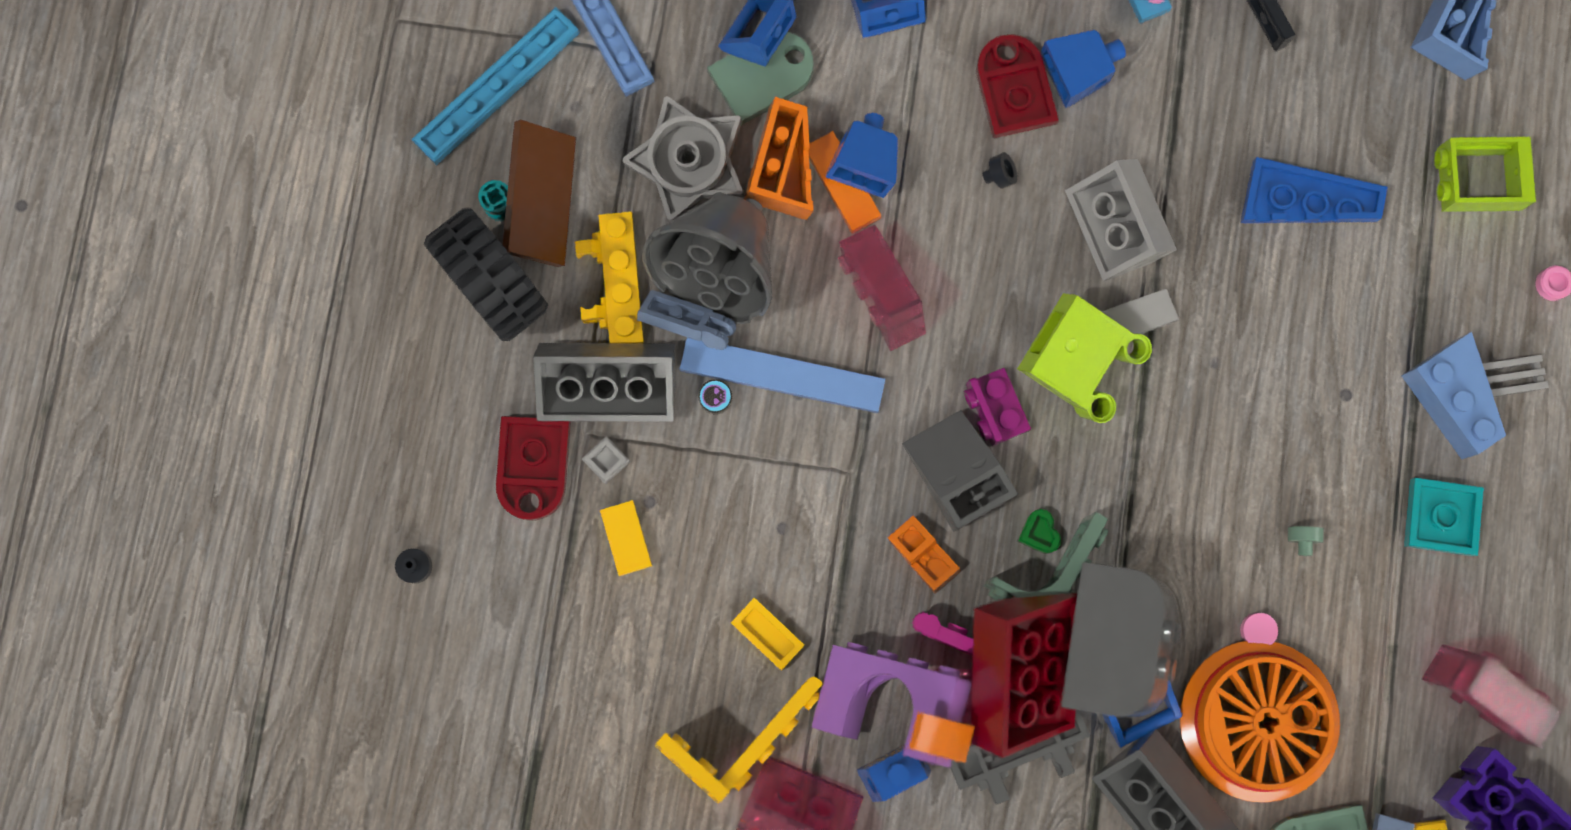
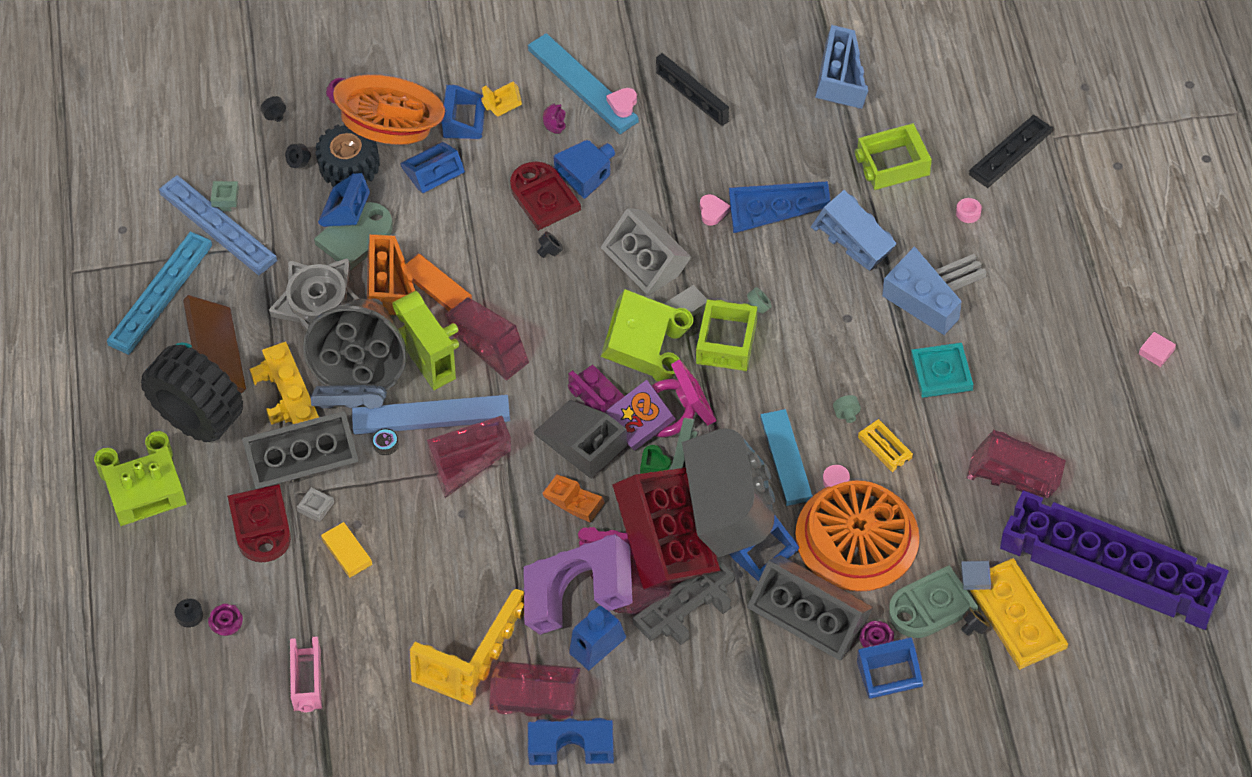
camera: 15 degrees left, 25 degrees down
(402, 369) = (144, 484): none -> lime piece
(445, 586) = (222, 613): none -> magenta plate
(528, 705) = (305, 676): none -> bright pink window
(767, 634) = (473, 582): yellow tile -> none
(801, 278) = (426, 340): none -> lime piece
(810, 454) = (467, 452): none -> clear pink wedge
(866, 157) = (448, 260): blue torso -> none
(941, 737) = (616, 572): orange slope -> none
(1042, 465) = (641, 414): none -> medium lavender tile
(1113, 463) = (690, 395): none -> dark pink tile
(1172, 408) = (726, 355): none -> lime window
(1206, 579) = (786, 457): none -> dark azure tile
(1225, 179) = (713, 209): none -> bright pink tile
(1241, 340) = (758, 298): none -> sand green tile
(1323, 606) = (877, 445): none -> yellow tile
(1401, 275) = (855, 230): none -> medium blue wedge

